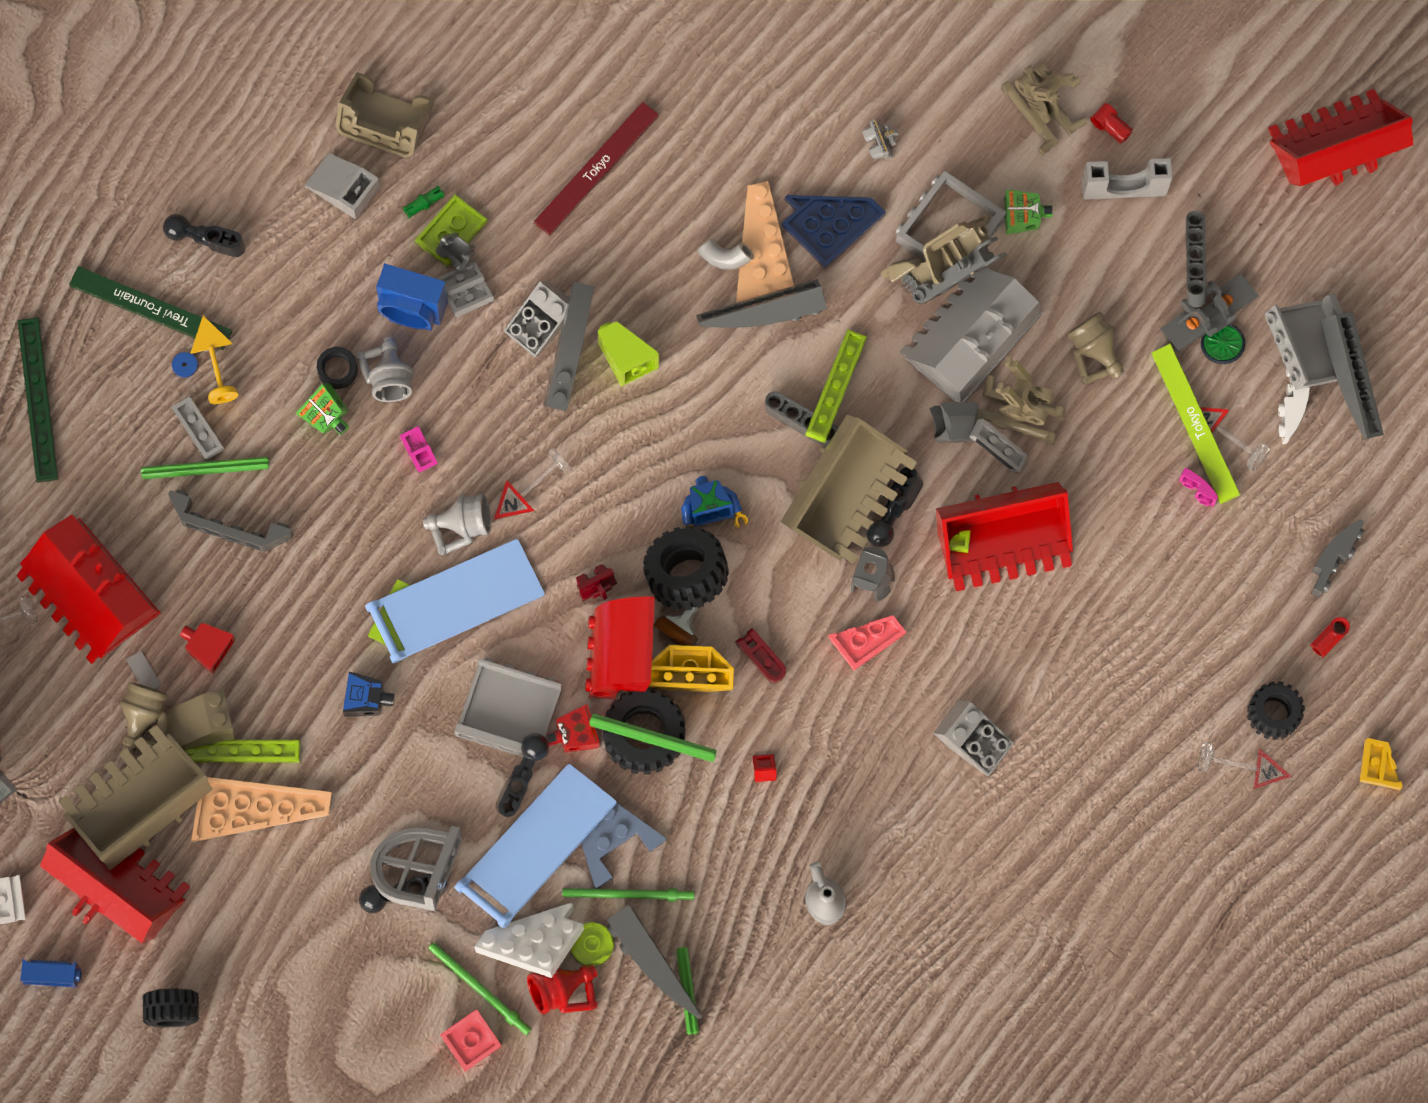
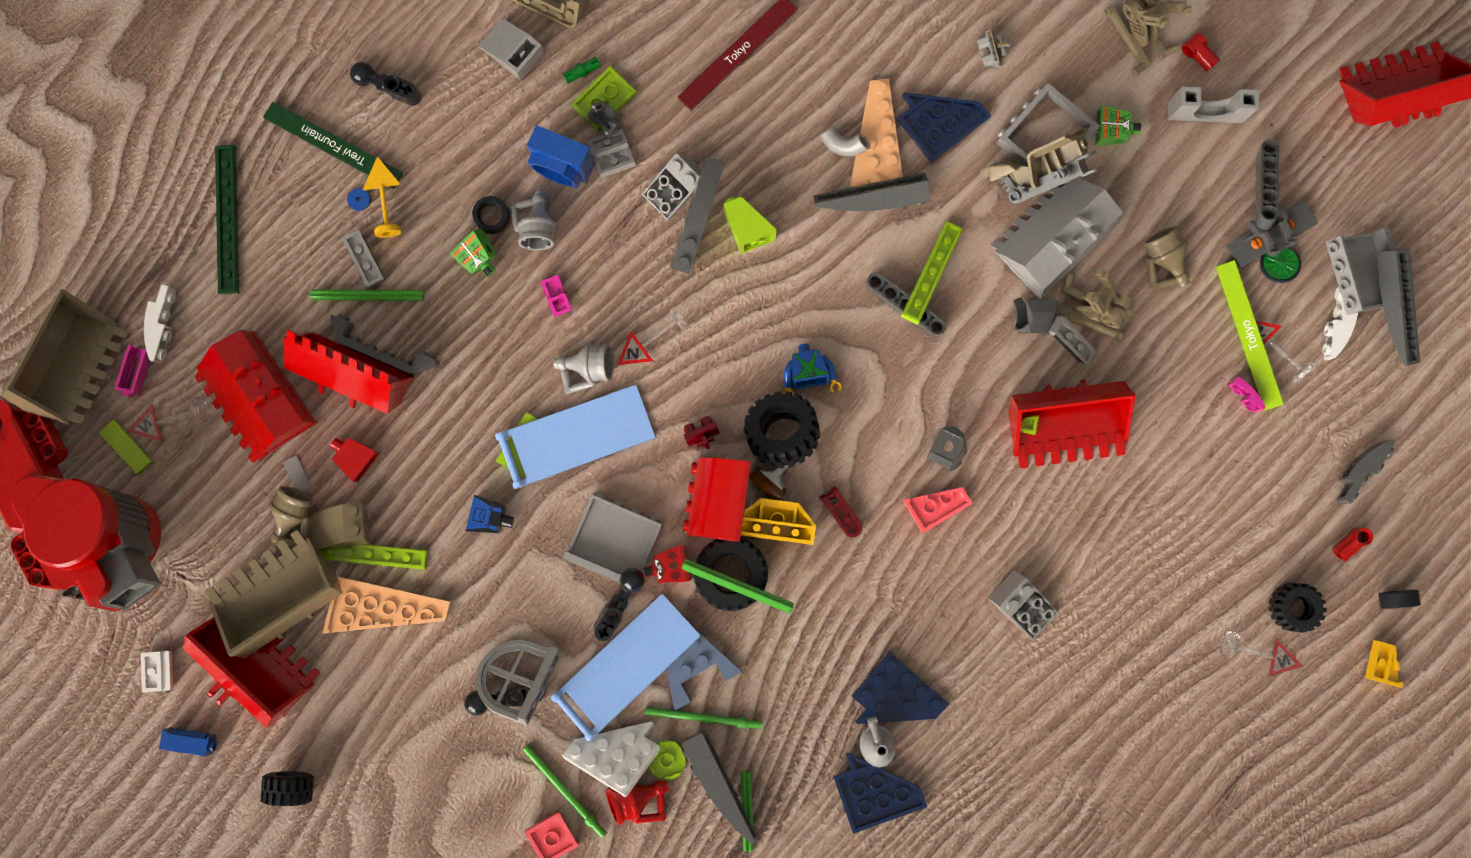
camera: 10 degrees right, 10 degrees up
(192, 550) = (345, 371): none -> piece
(764, 768) = (834, 614): red slope -> none
(828, 958) = (875, 795): none -> dark blue wing
(843, 848) = (896, 694): none -> dark blue wing
(847, 488) = (933, 369): dark tan piece -> none
(881, 531) = (959, 409): black beam -> none
(1385, 690) = (1399, 599): none -> black tyre

